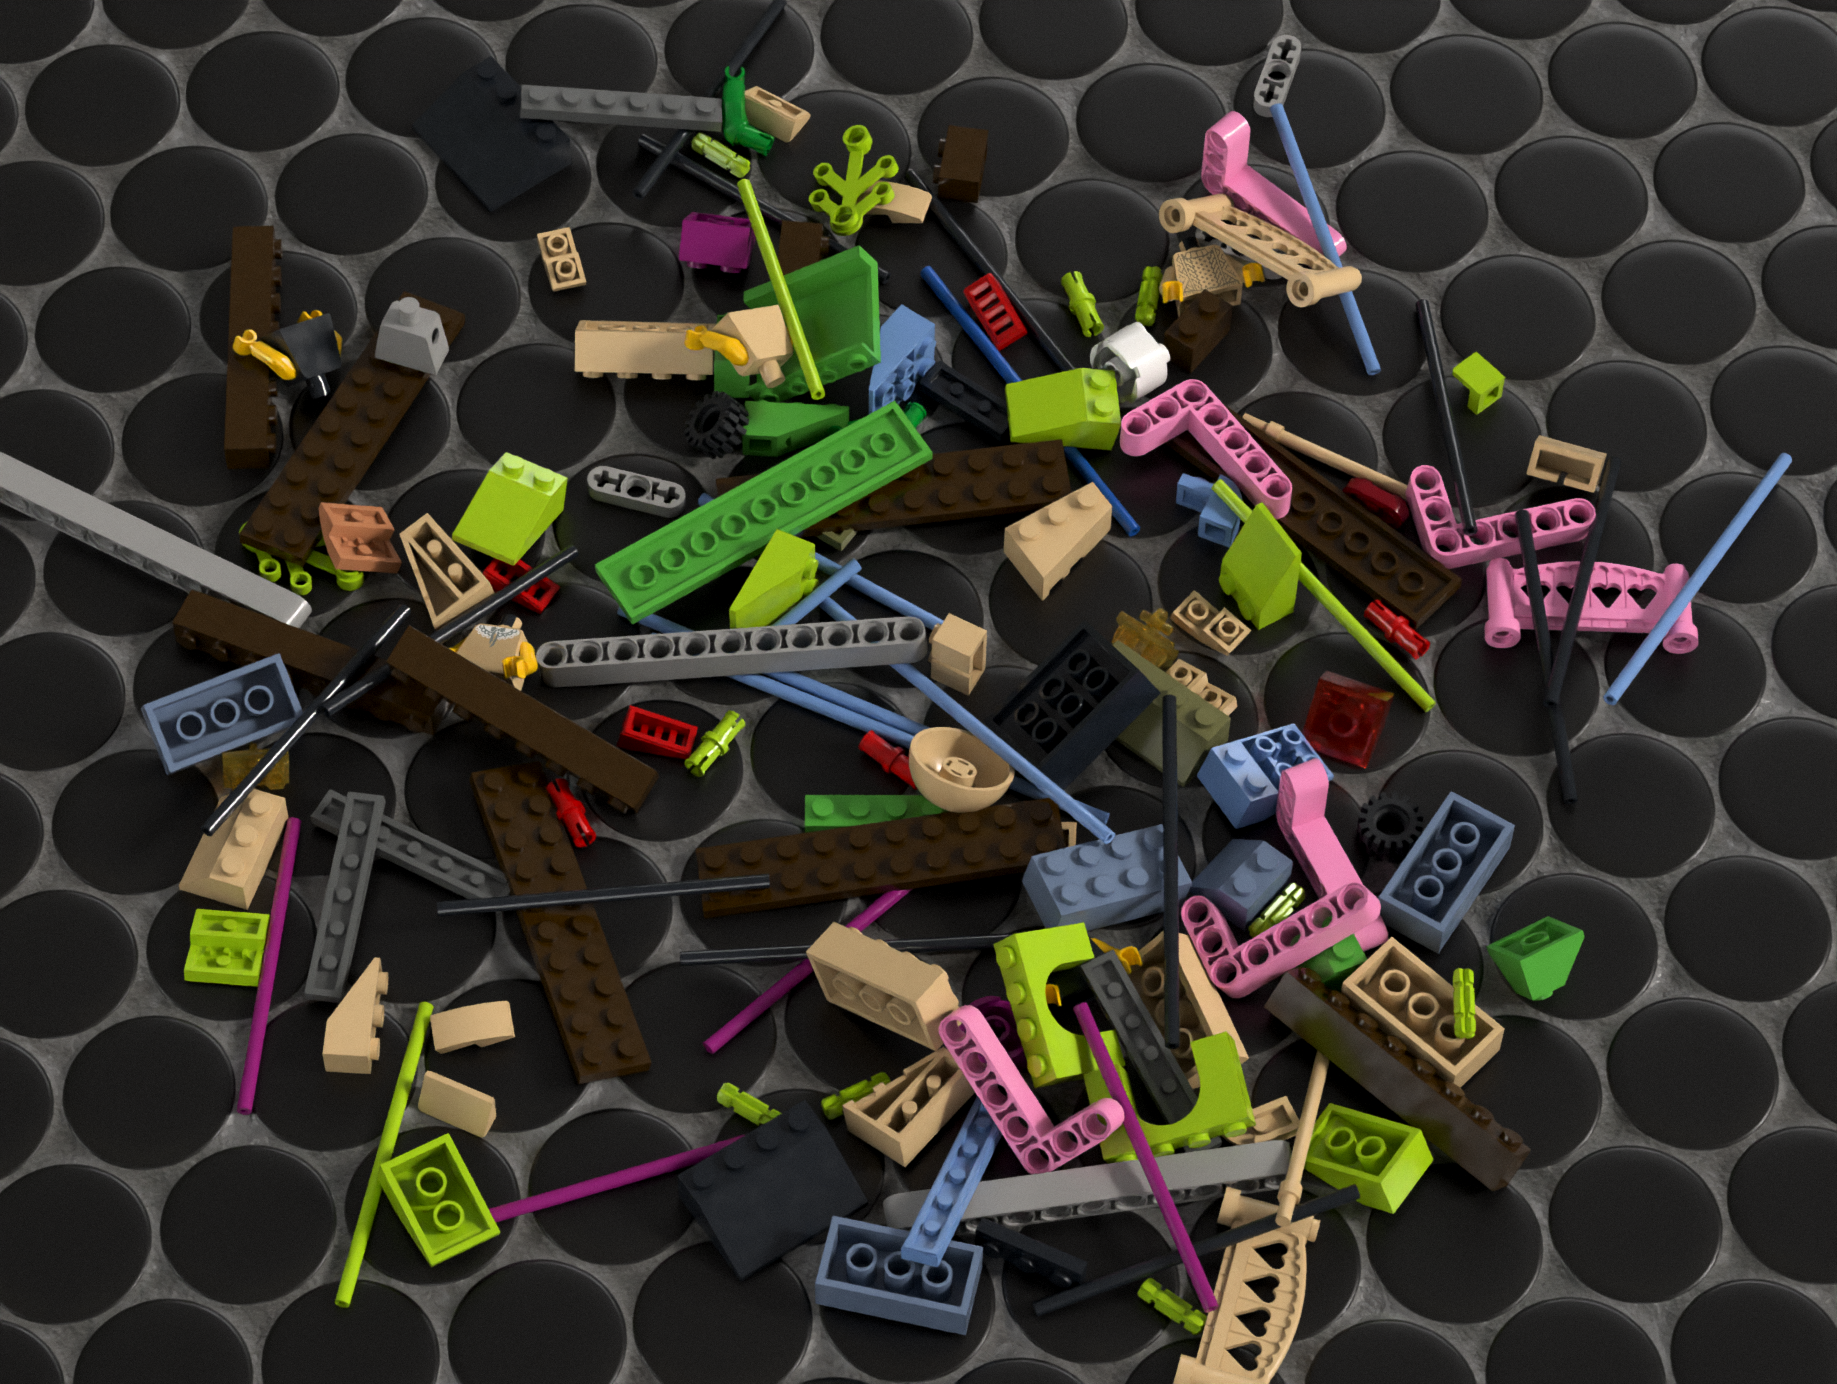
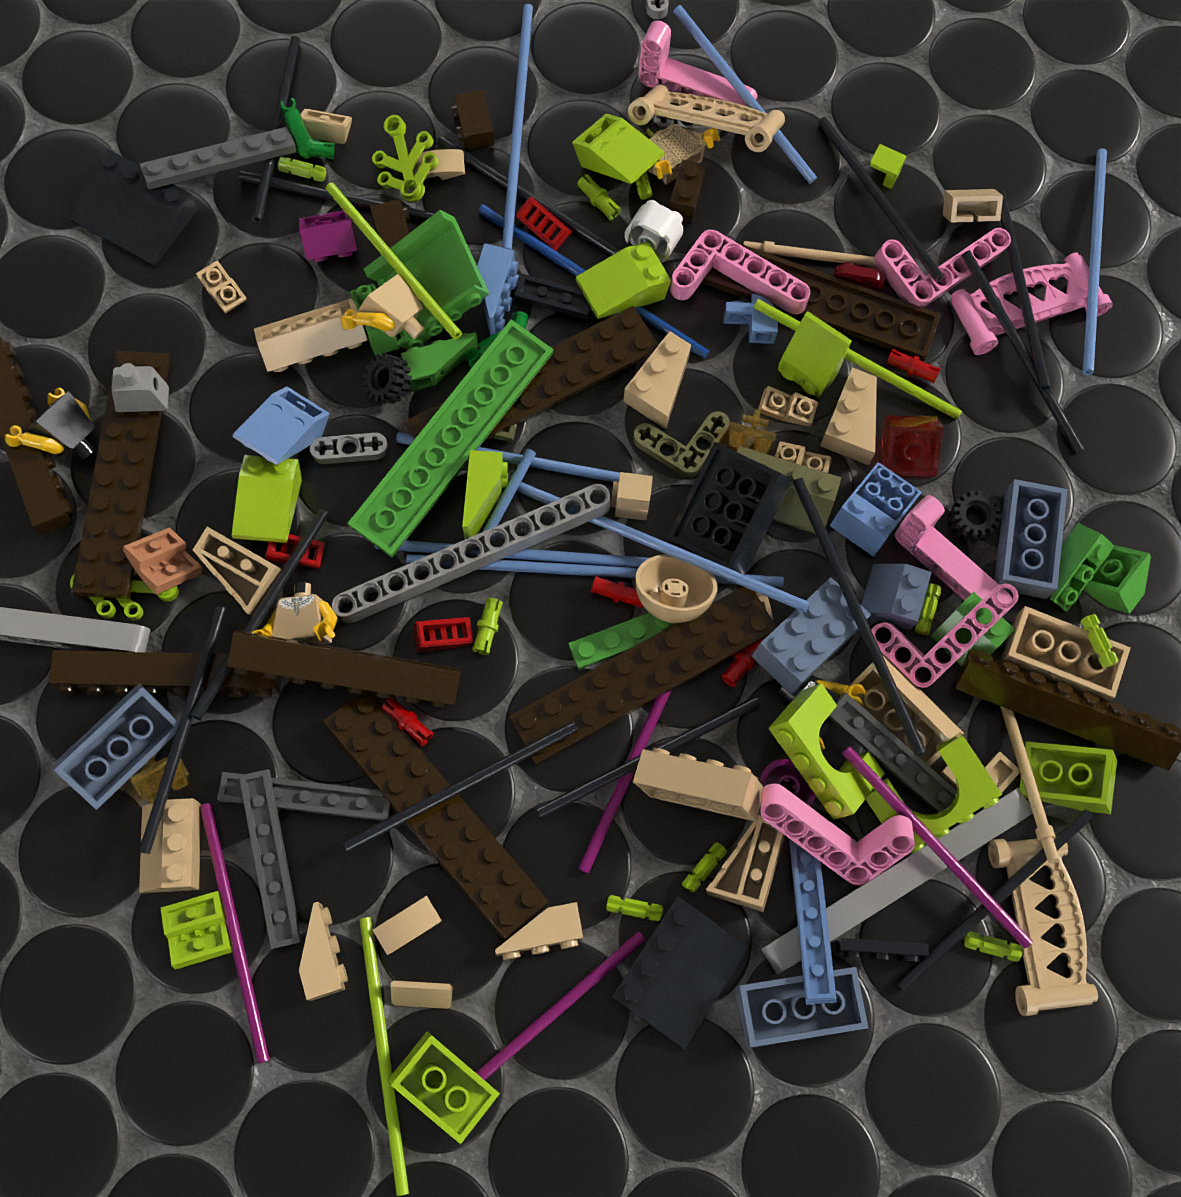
camera: 25 degrees left, 15 degrees up
(566, 434) = (282, 426): none -> medium blue slope
(635, 1089) = (550, 928): none -> tan slope
(1008, 891) = (742, 663): none -> red pin
(1015, 187) = (517, 128): none -> medium blue piece
(1048, 632) = (682, 453): none -> olive beam
(1124, 251) = (616, 149): none -> lime slope
(1283, 660) = (854, 419): none -> tan wedge
(1492, 923) = (1079, 560): none -> bright green slope

